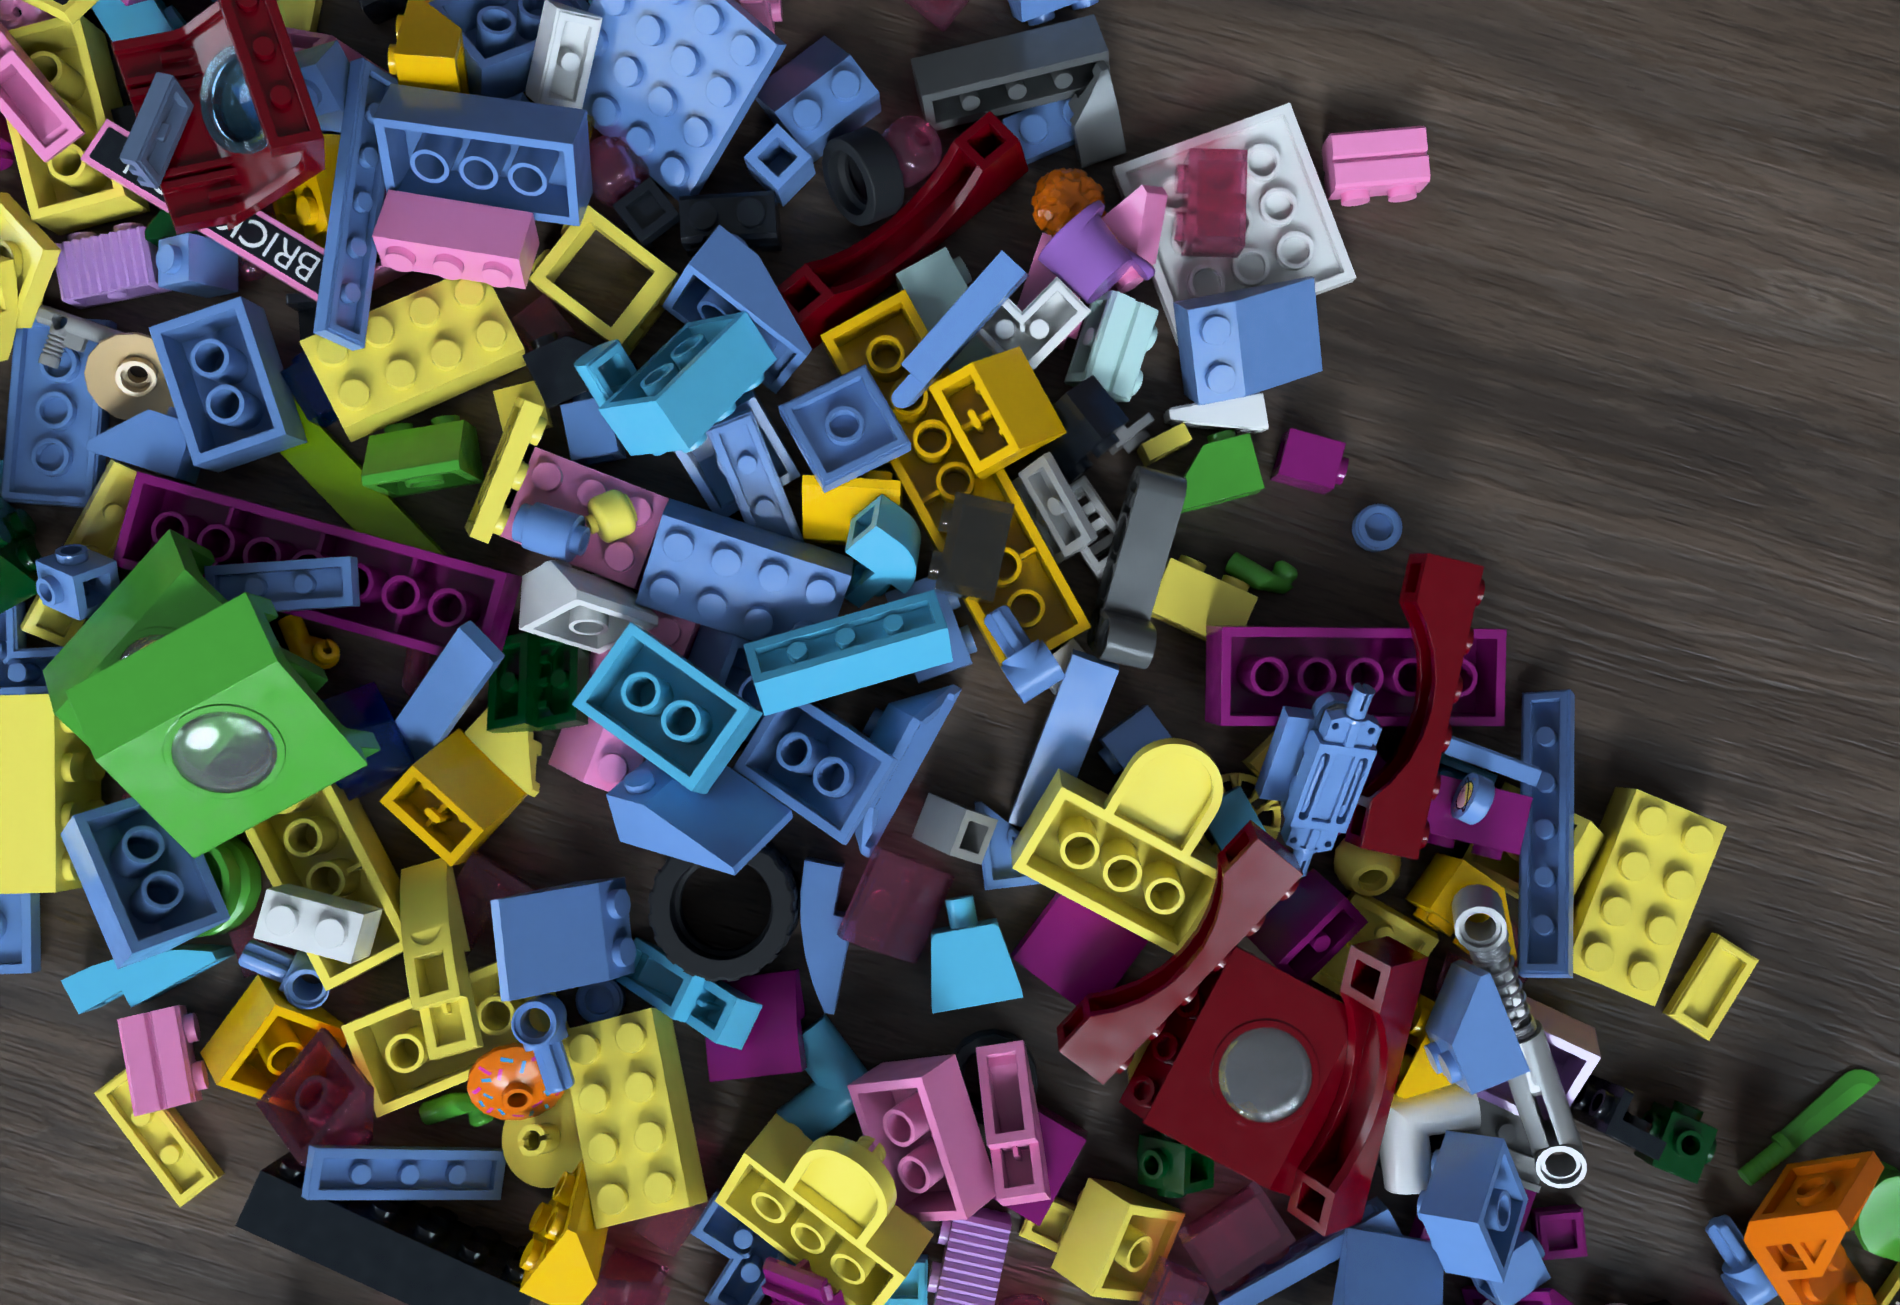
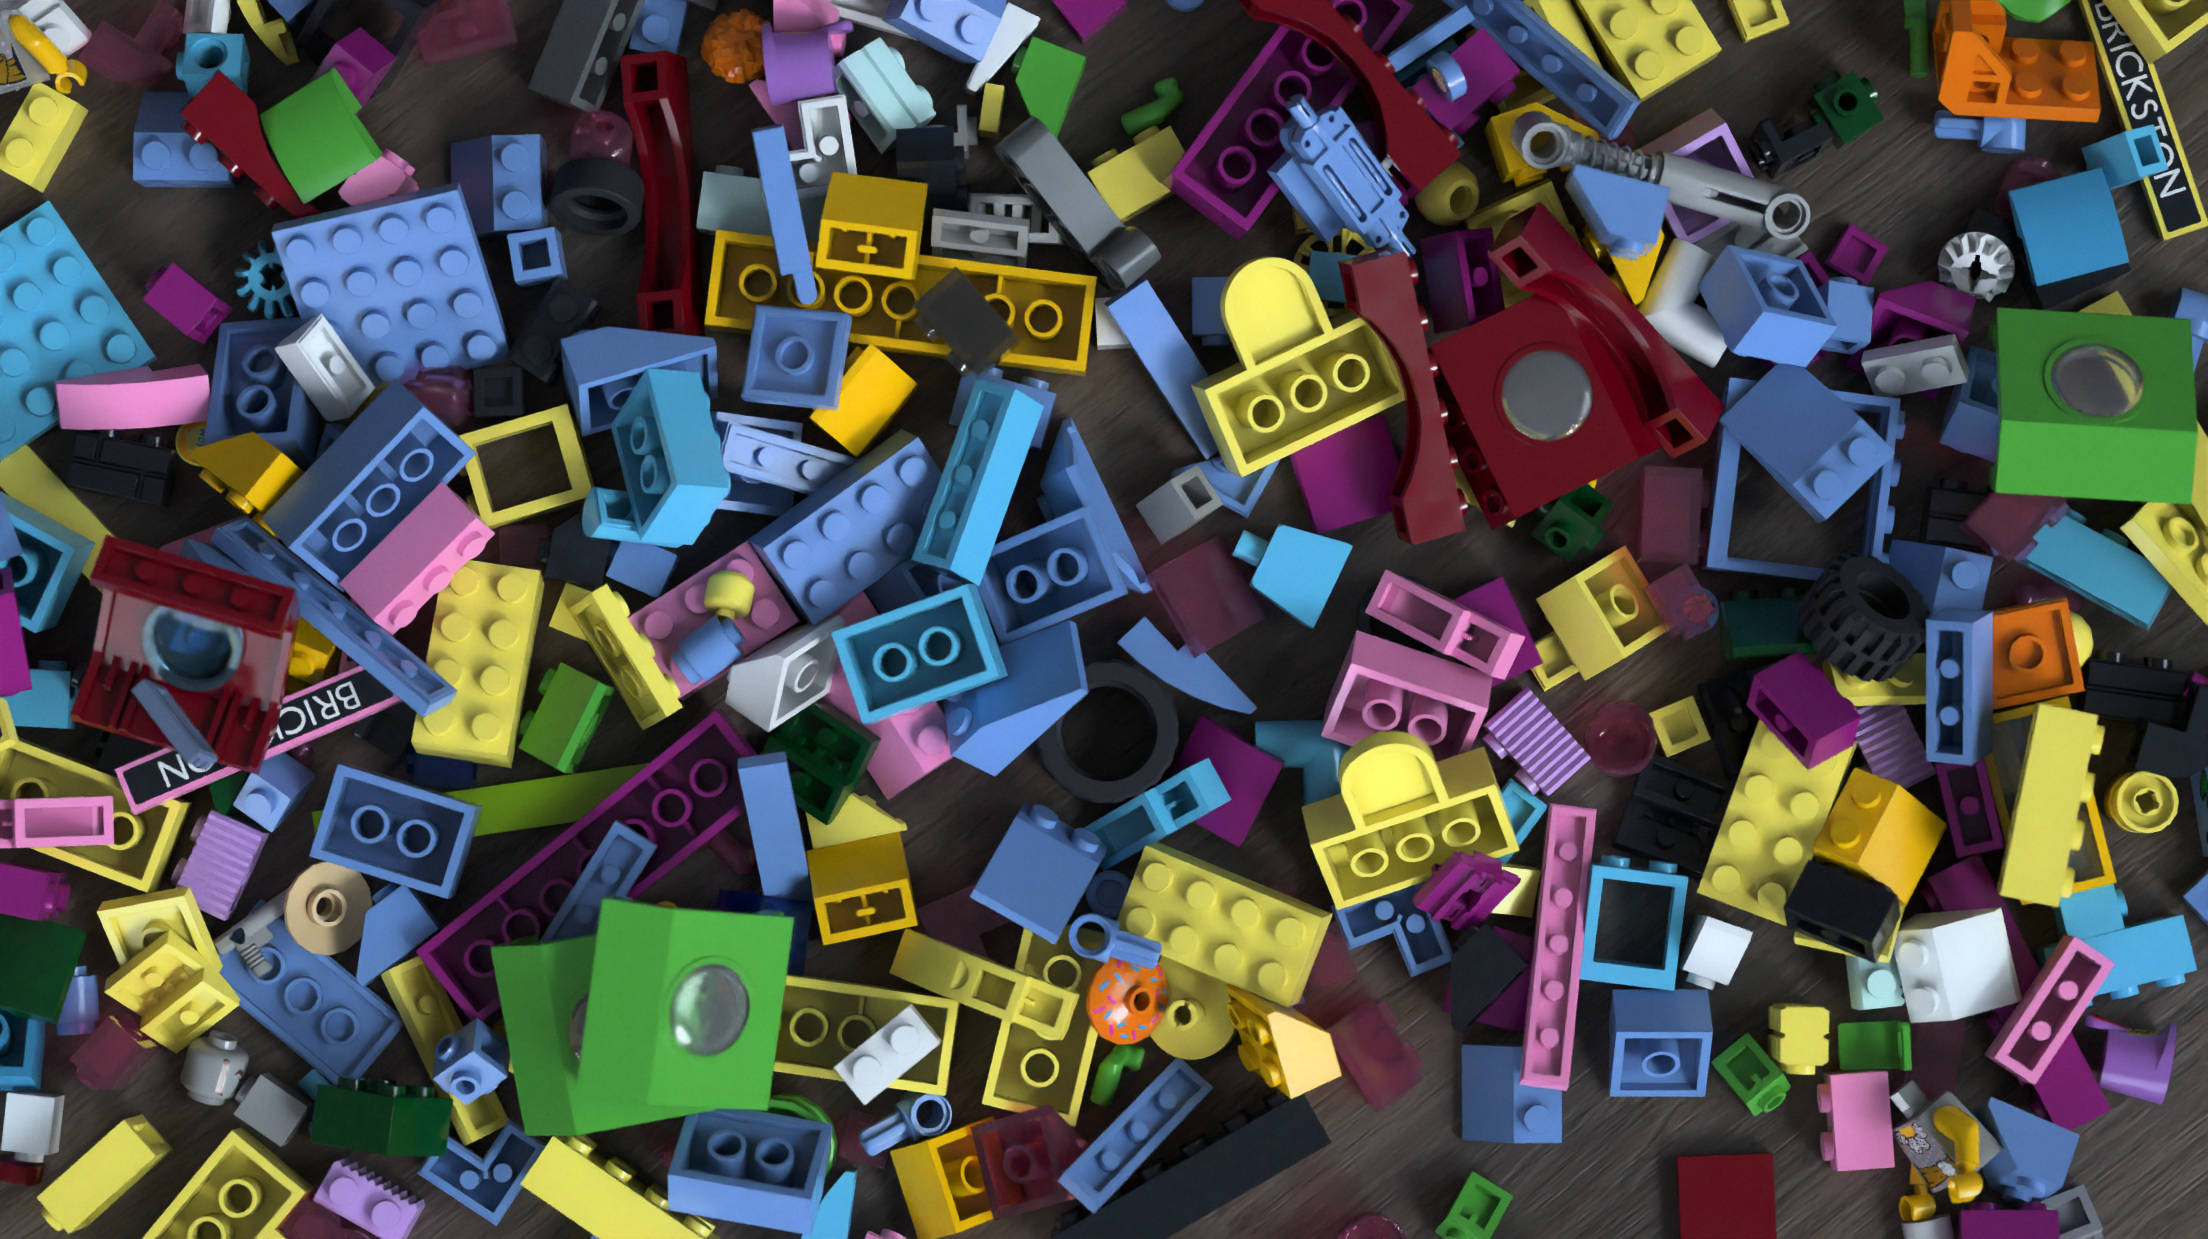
camera: 50 degrees left, 0 degrees up
(885, 549) = (916, 396): medium azure brick -> none
(1028, 664) = (1091, 348): medium blue axle -> none

